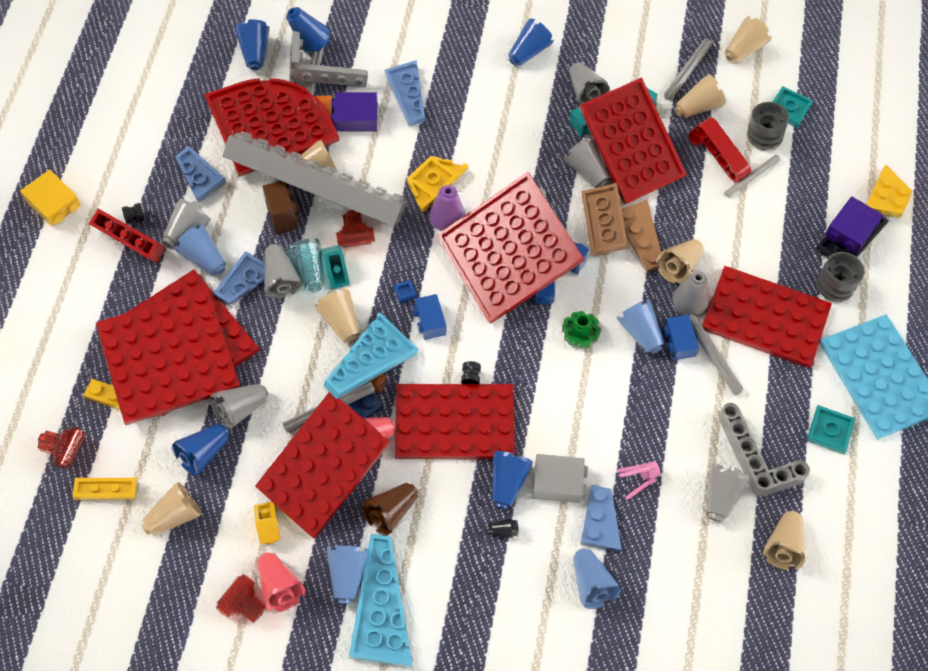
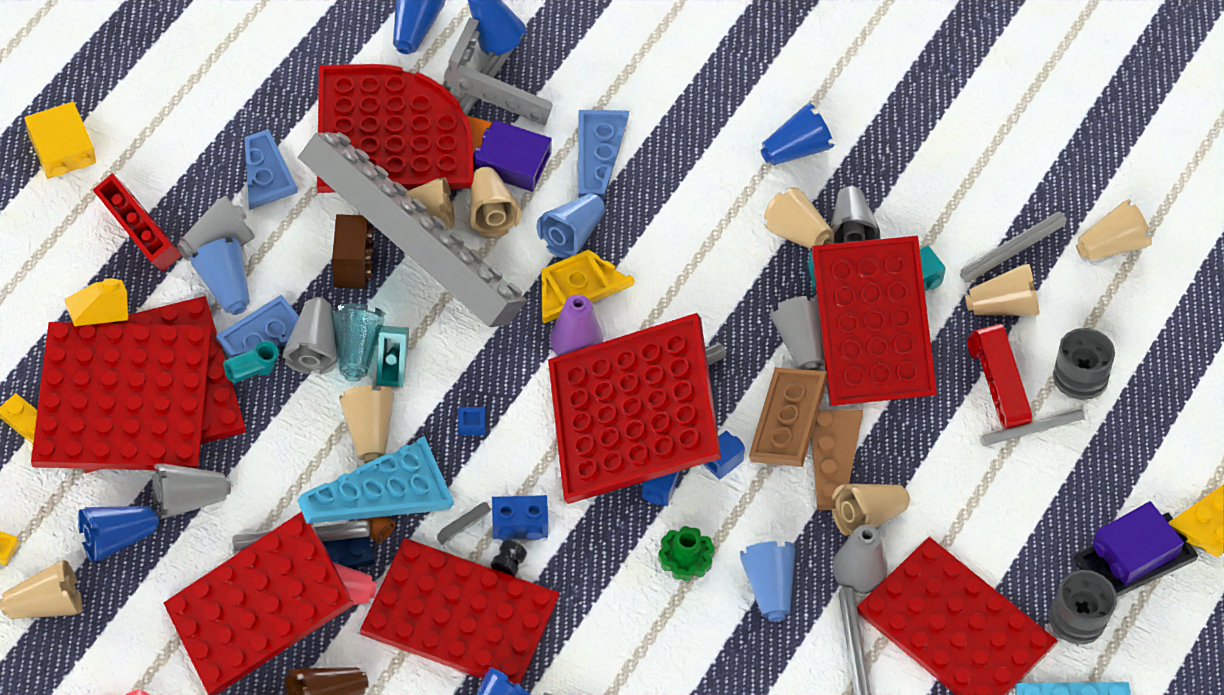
camera: 20 degrees right, 5 degrees down
(125, 298) = (98, 303): none -> yellow slope
(133, 213) = (157, 195): black wheel -> none
(245, 303) = (251, 363): none -> teal piece
(267, 523) = (157, 654): yellow slope -> none
(354, 231) = (437, 317): clear red piece -> none
(357, 147) = (492, 204): none -> tan cone
(413, 144) = (570, 225): none -> medium blue cone
(430, 317) = (488, 465): blue brick -> none
(430, 361) = (463, 522): none -> dark grey tile
(465, 344) = (520, 517): none -> blue brick
(555, 94) = (797, 219): none -> tan cone
(681, 337) = (819, 611): blue brick -> none
(795, 104) = (1139, 349): teal tile -> none

